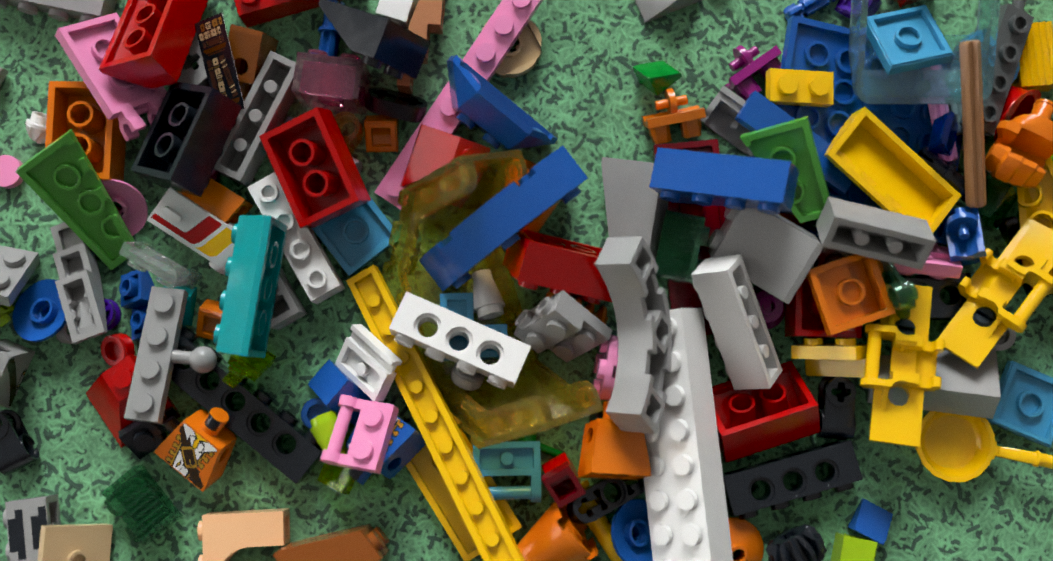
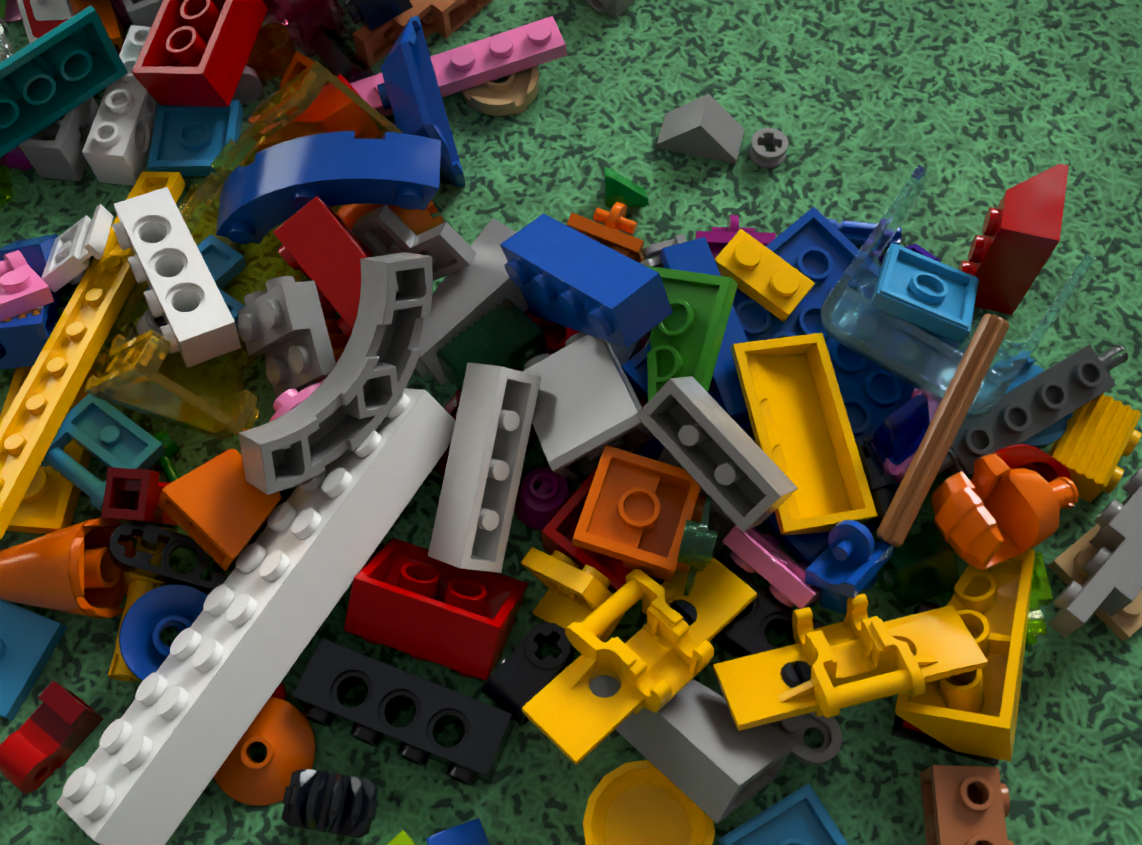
camera: 40 degrees right, 20 degrees down
(486, 296) = (253, 270): white cone -> none
(578, 217) = (387, 234): none -> light grey plate

